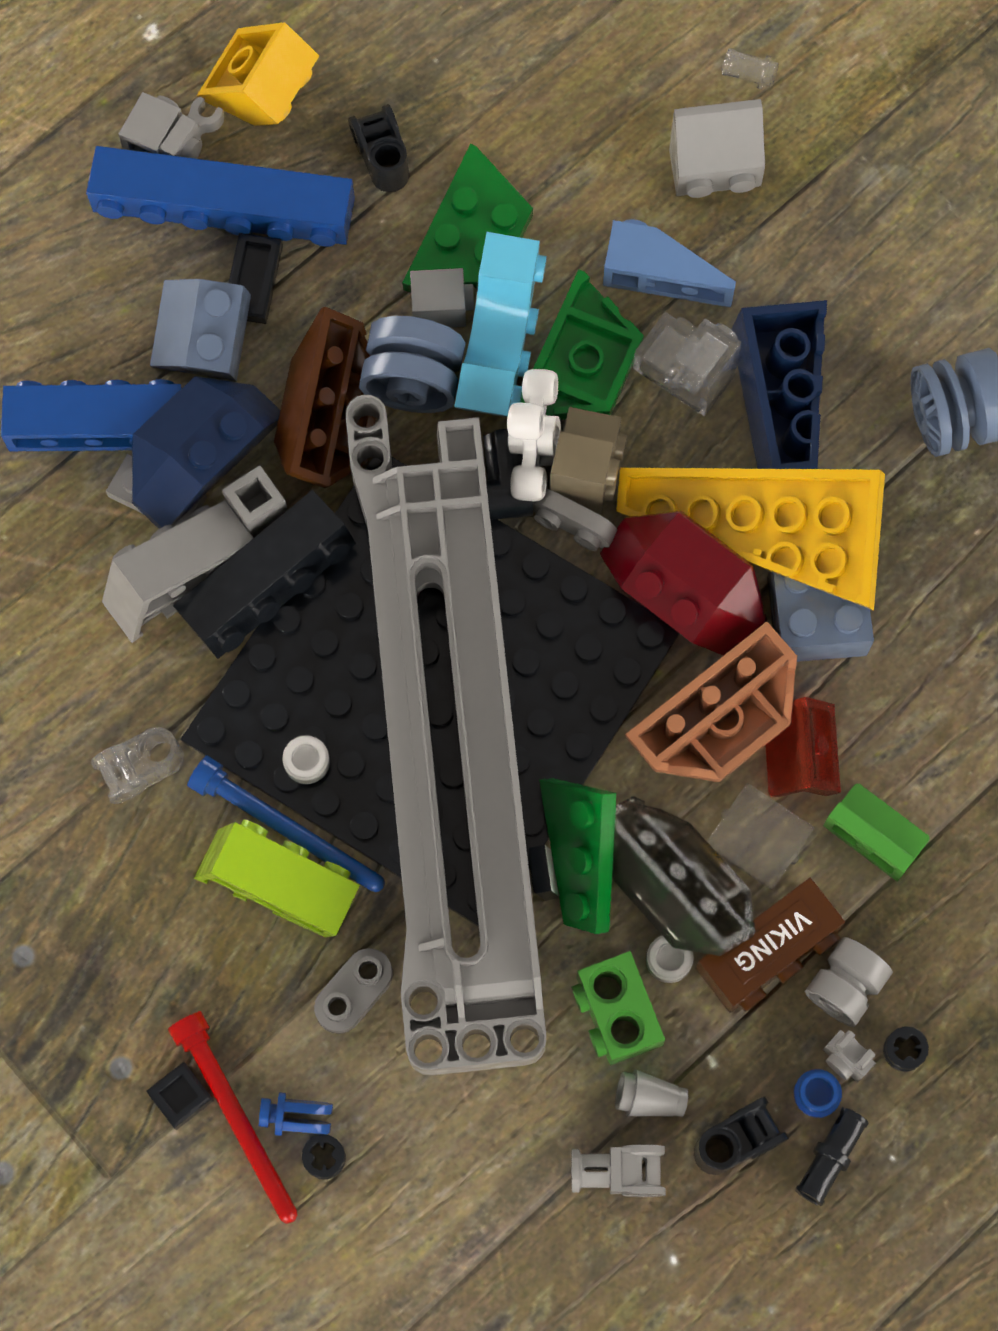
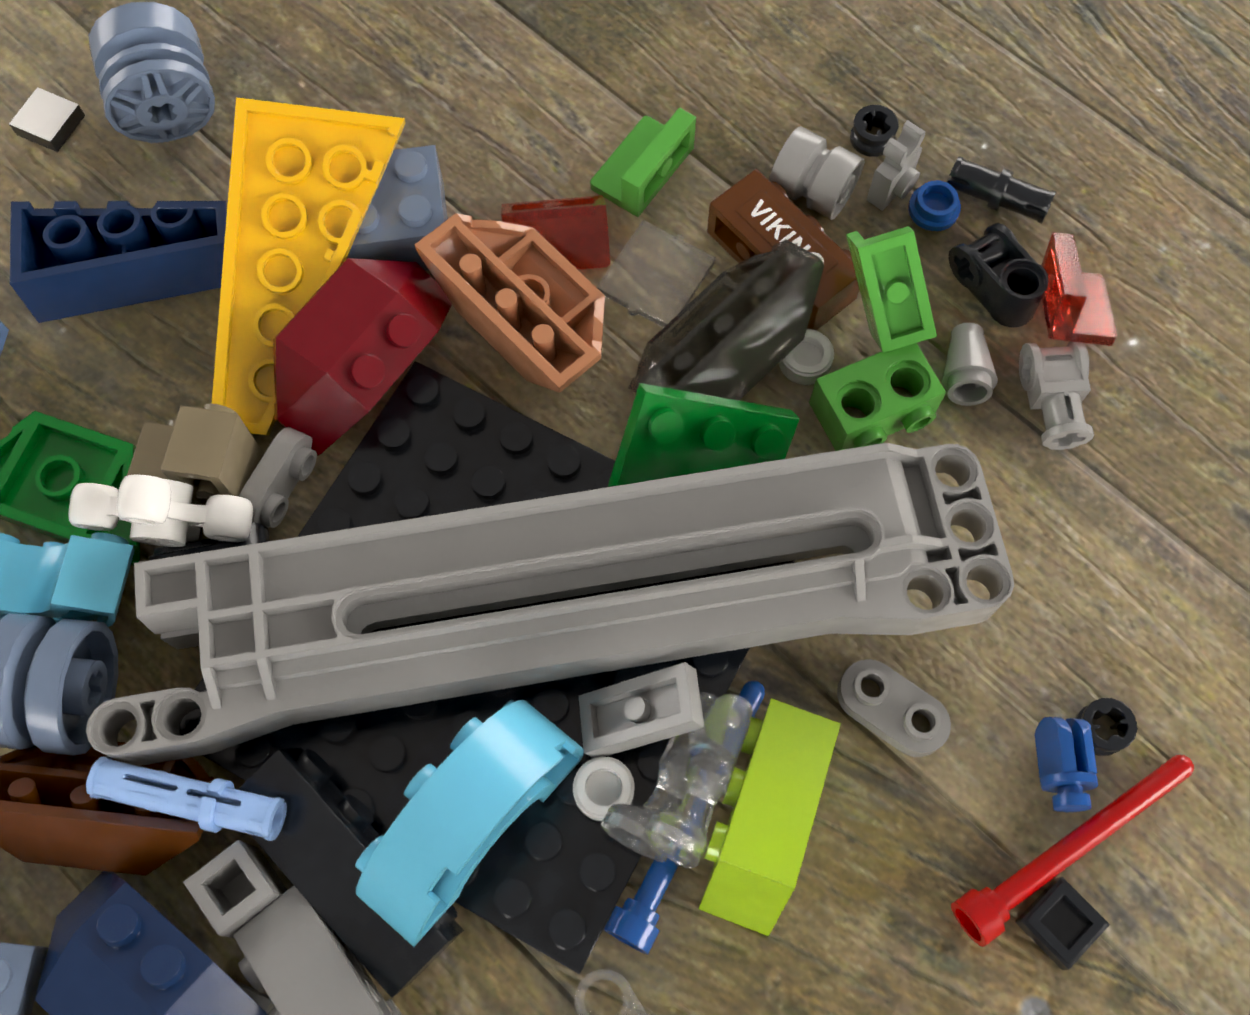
camera: 95 degrees left, 5 degrees down
(291, 655) = (460, 814): none -> medium azure brick
(298, 510) = (210, 804): none -> light blue pin
(304, 820) = (689, 785): none -> clear piece
(356, 784) = (641, 711): none -> light grey plate
(688, 360) = (81, 352): clear brick -> none
(700, 1013) = (892, 288): none -> bright green panel
(706, 1200) = (1075, 301): none -> clear red panel
(936, 319) = (47, 119): none -> white tile

